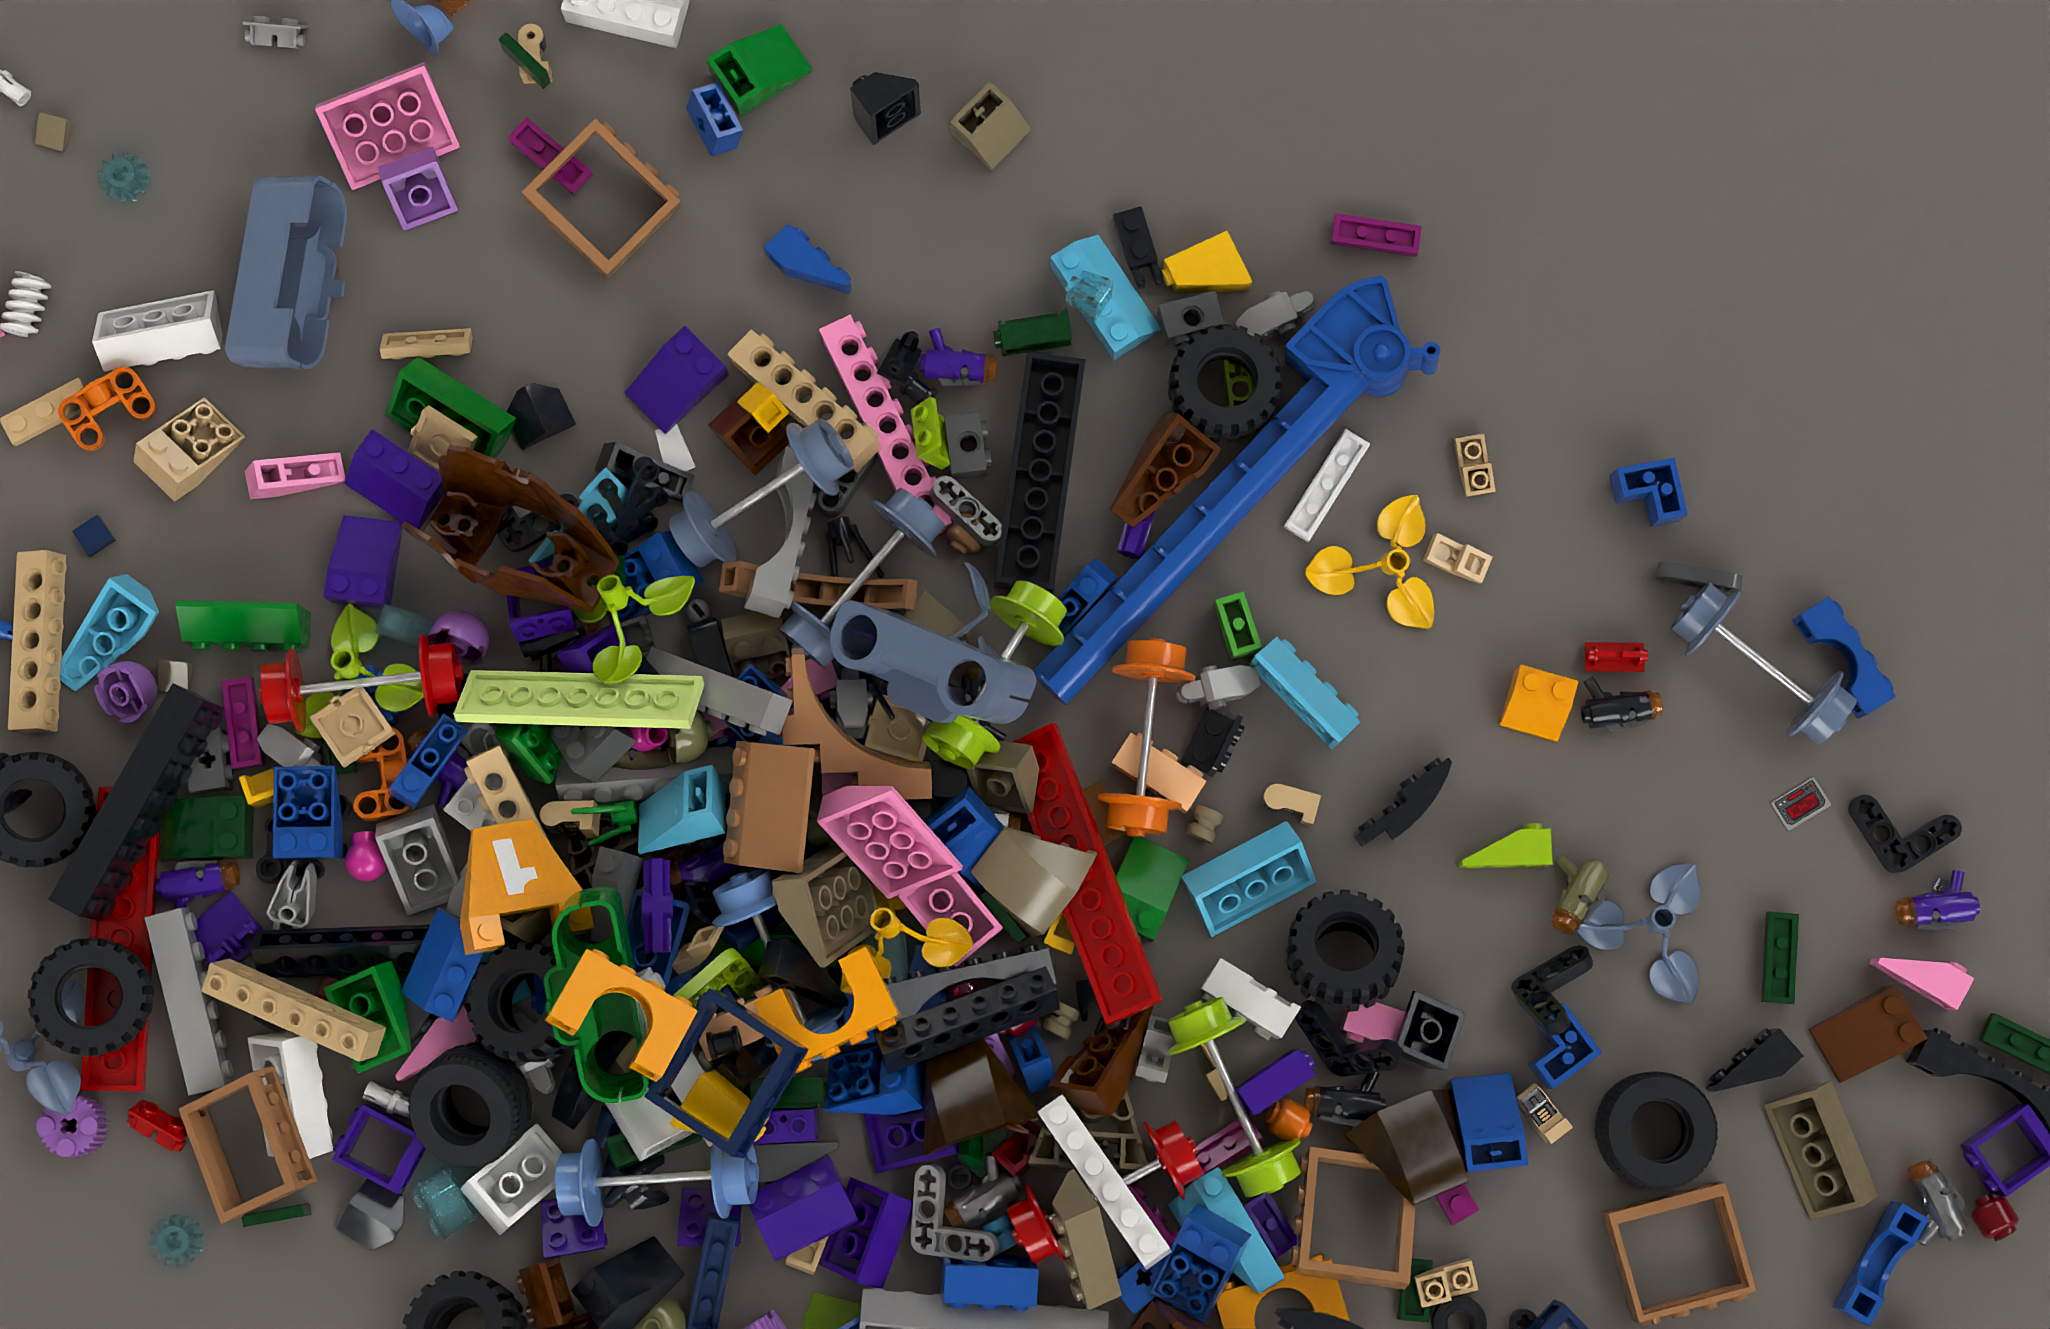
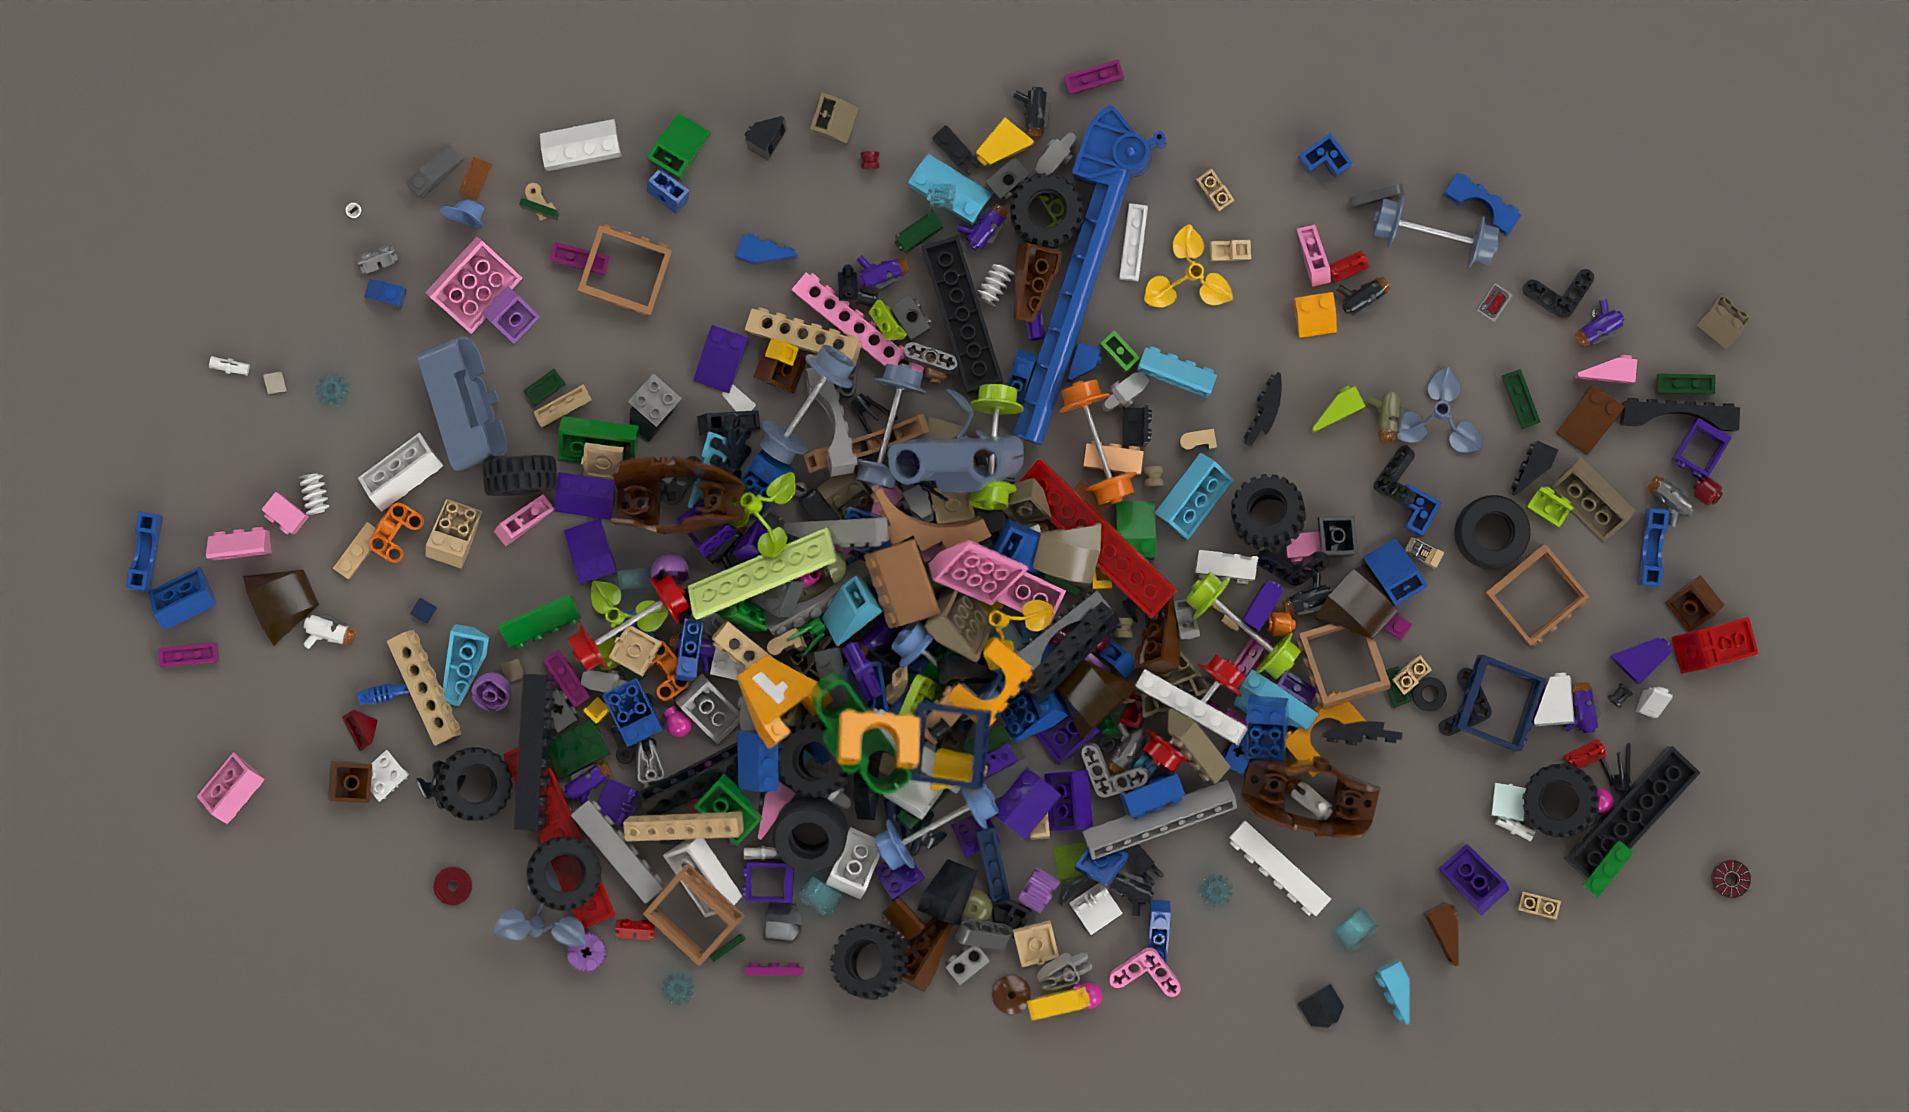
camera: 20 degrees left, 5 degrees up
(264, 82) = (385, 292): none -> blue slope
(313, 406) = (520, 475): none -> black tyre
(325, 1278) = (773, 969): none -> magenta plate
(415, 308) = (544, 387): none -> dark green tile
(556, 393) = (655, 400): none -> light grey hinge
(1012, 205) = (870, 160): none -> dark red wheel
(1105, 451) = (994, 284): none -> white piece
(1130, 372) = (986, 229): none -> dark purple piece
(1181, 617) = (1084, 361): none -> blue slope
(1275, 244) = (1037, 111): none -> black piece
(1573, 620) = (1314, 255): none -> bright pink slope
(1755, 1131) = (1550, 506): none -> lime bracket

